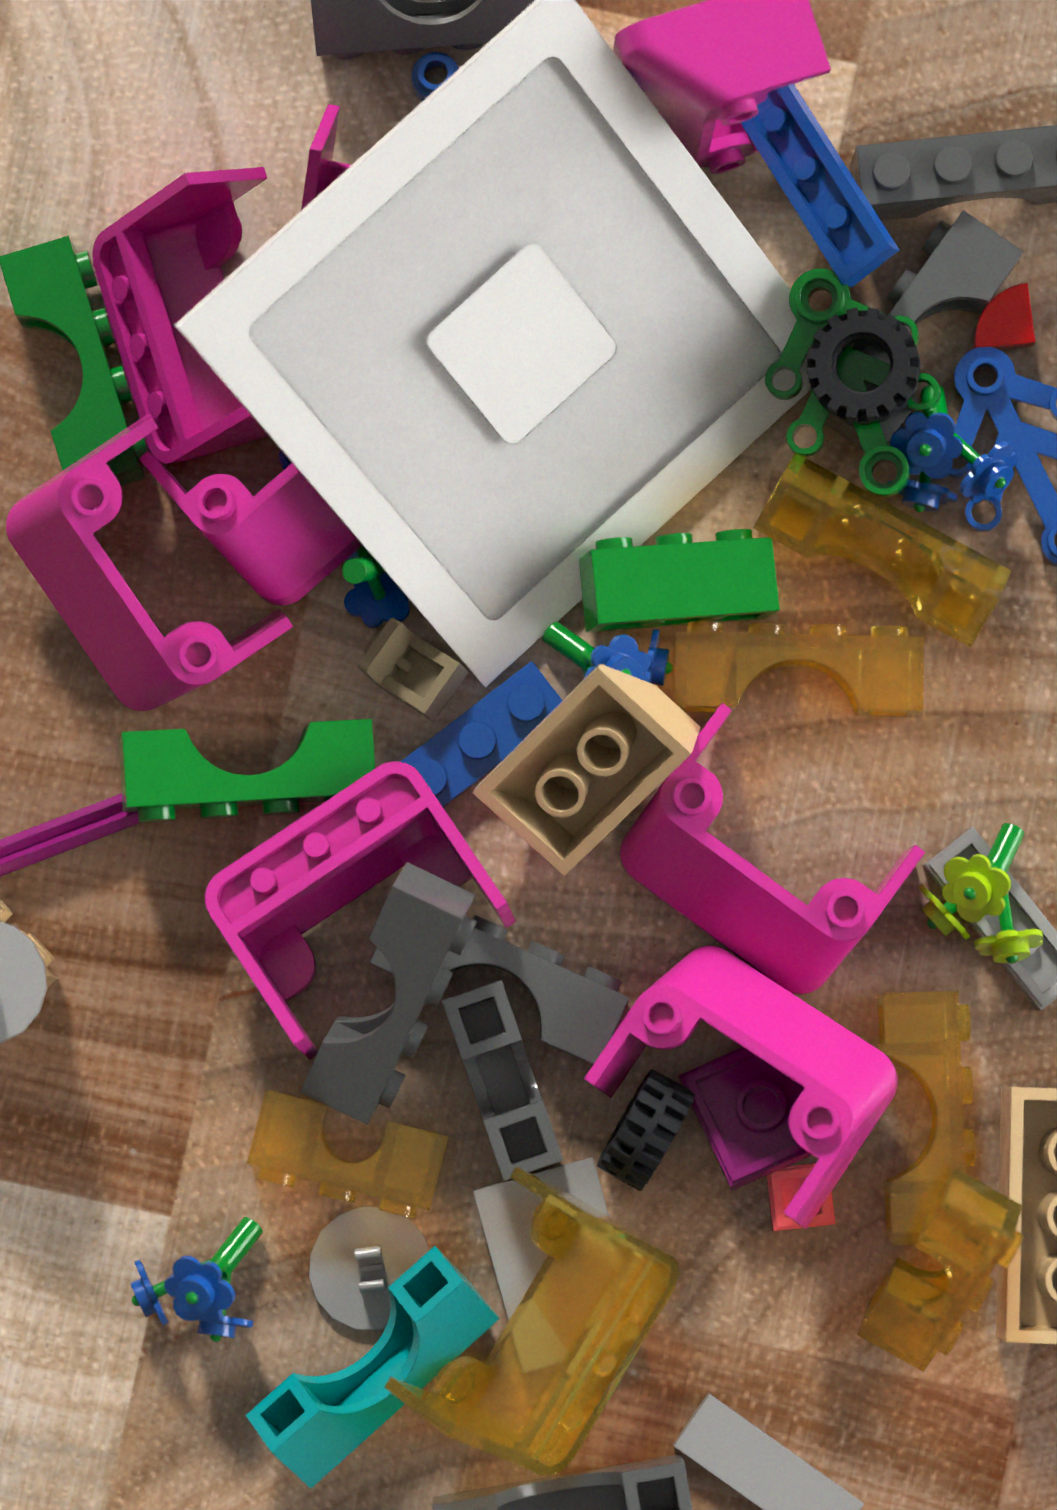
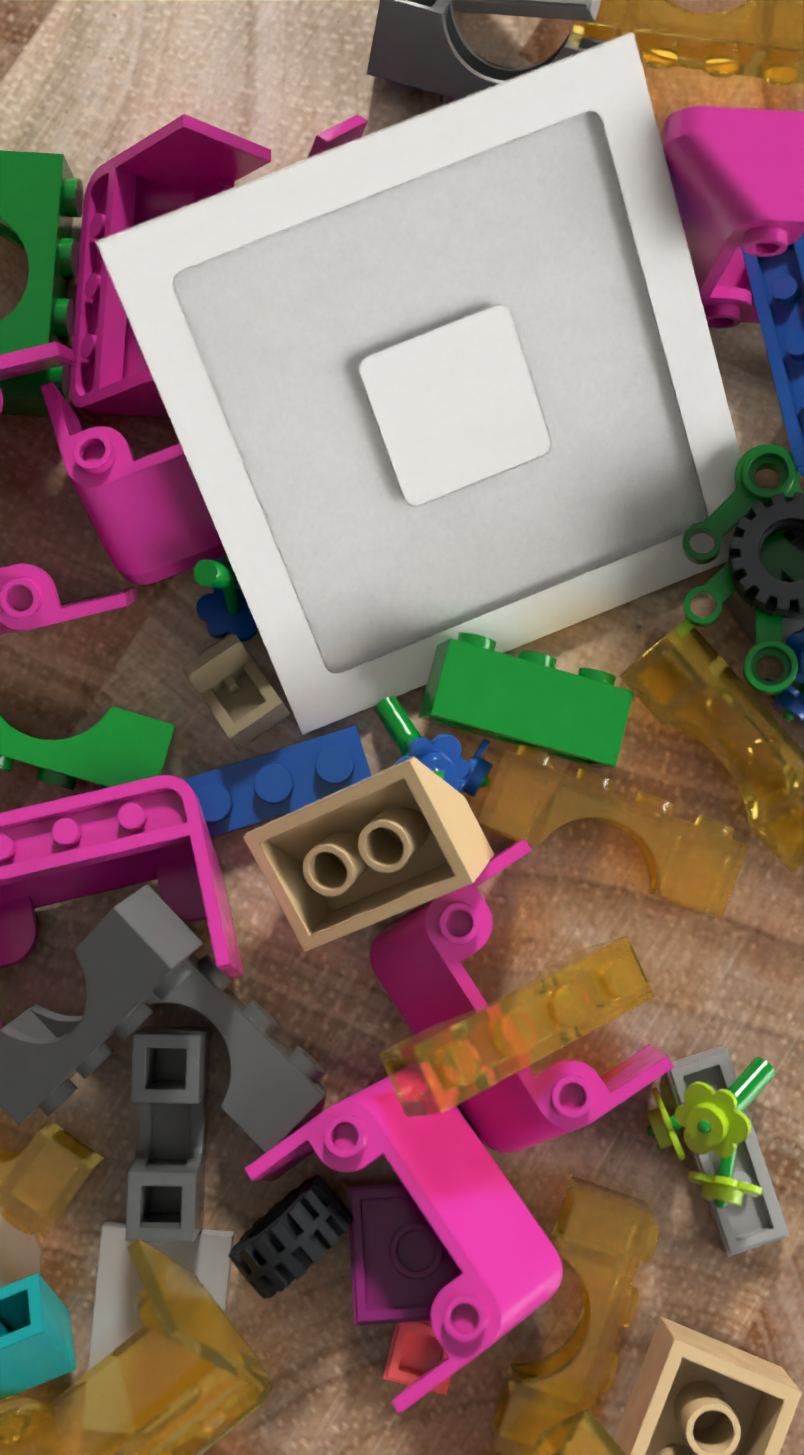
camera: 20 degrees right, 0 degrees up
(776, 868) = (510, 1033): none -> clear yellow arch

